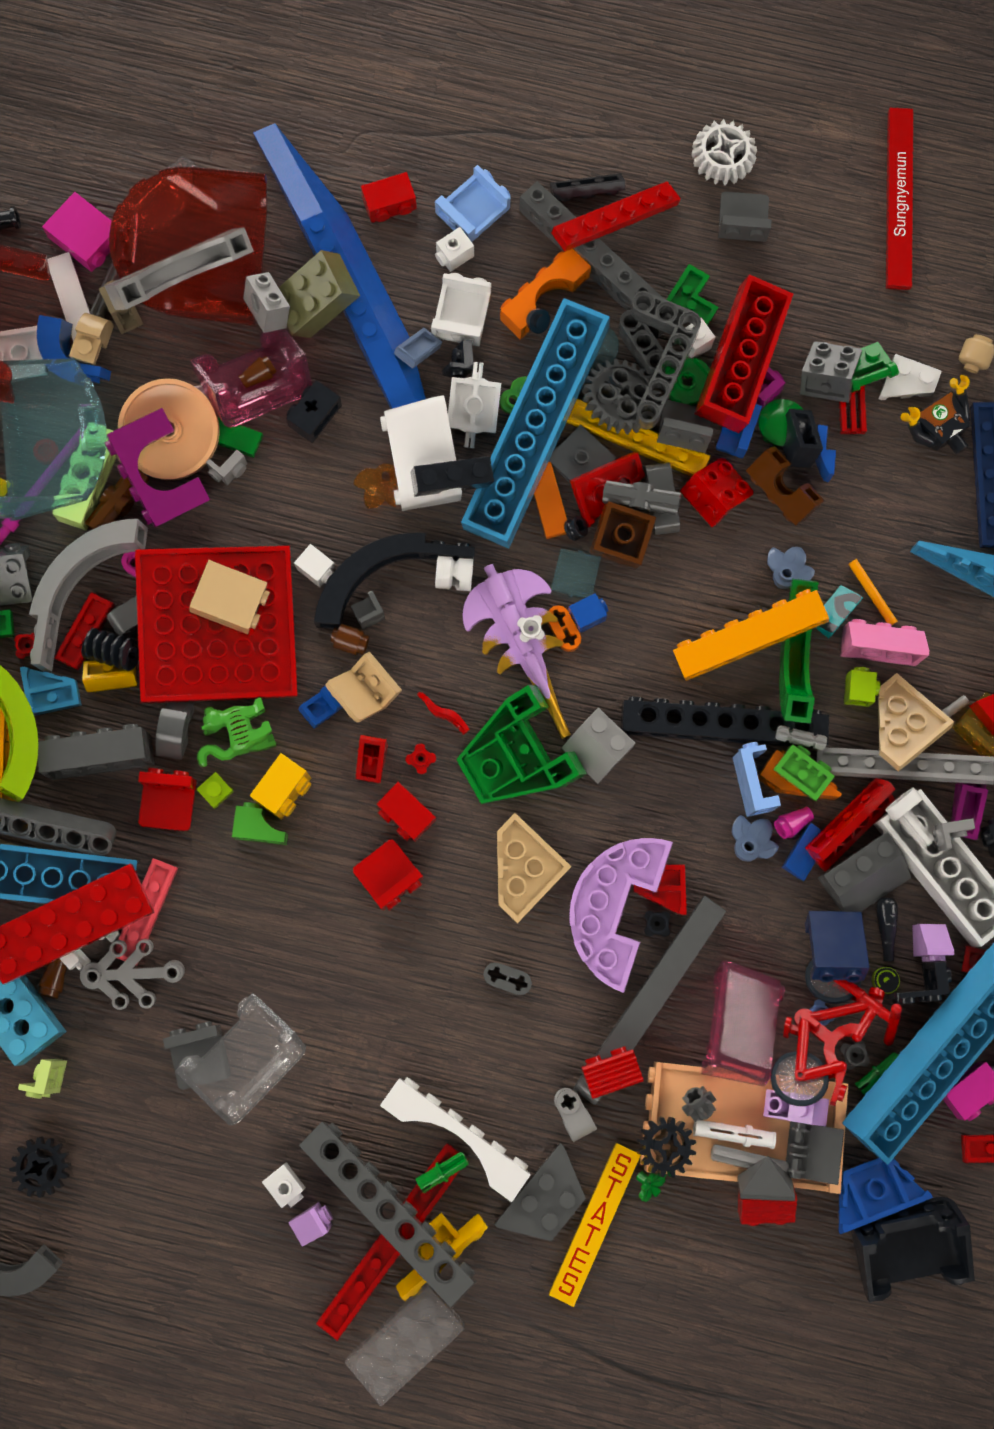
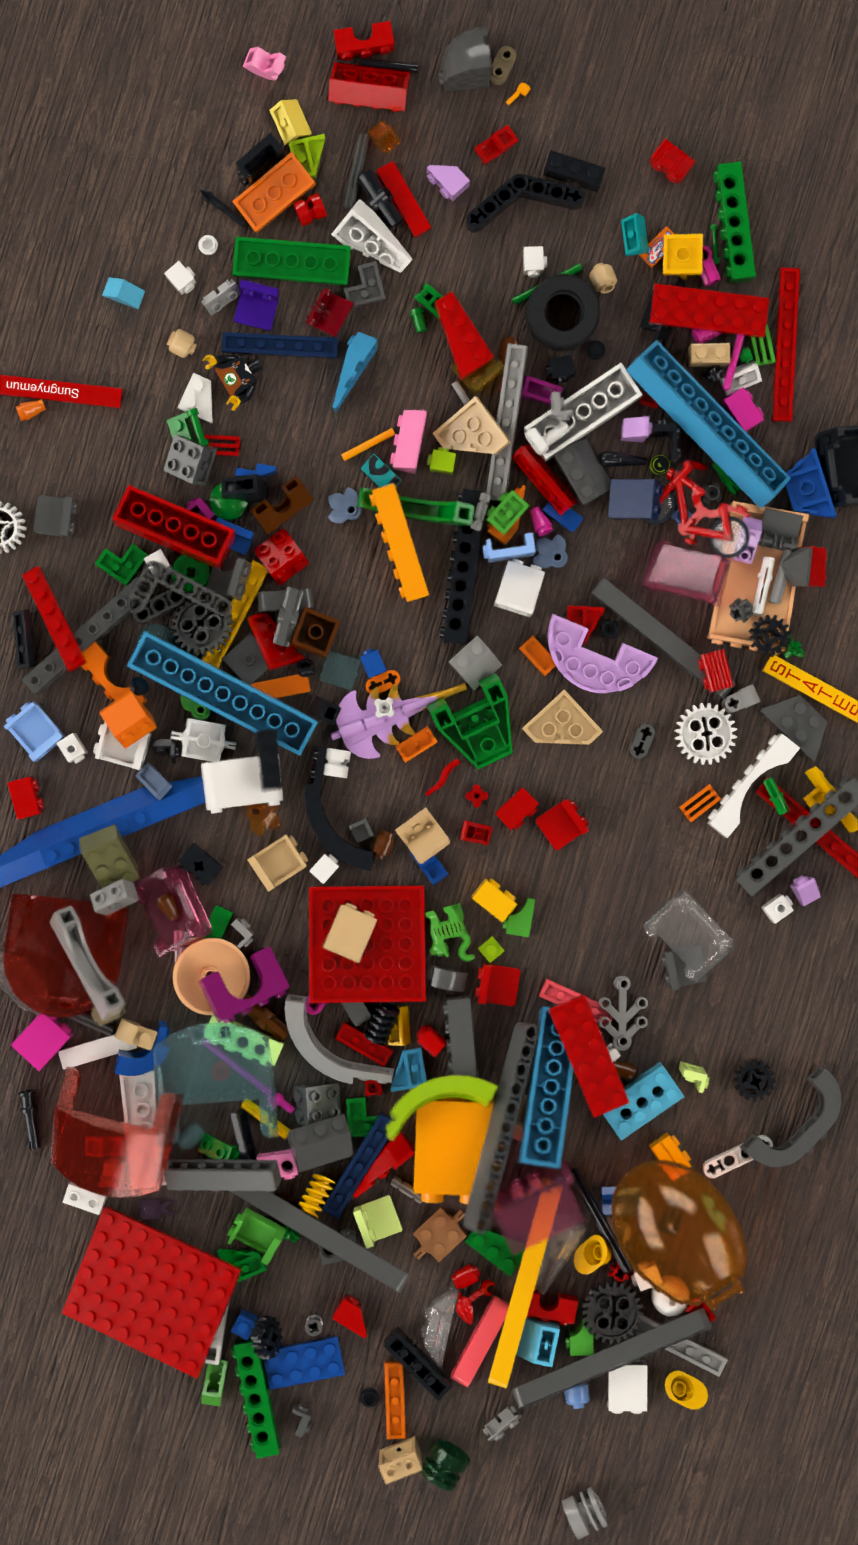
camera: 80 degrees left, 10 degrees up
(89, 712) = (430, 1040): none -> red brick
(320, 507) = (278, 862): none -> tan panel
(441, 1083) = (712, 793): none -> orange tile
(484, 676) = (416, 744): none -> orange hinge
(495, 307) = (128, 719): none -> orange slope
(522, 552) = (324, 710): none -> black brick
(528, 1090) = (688, 736): none -> white gear
(614, 829) = (538, 655): none -> orange tile
(703, 797) = (519, 588): none -> white slope
(873, 180) = (30, 409): none -> orange cone

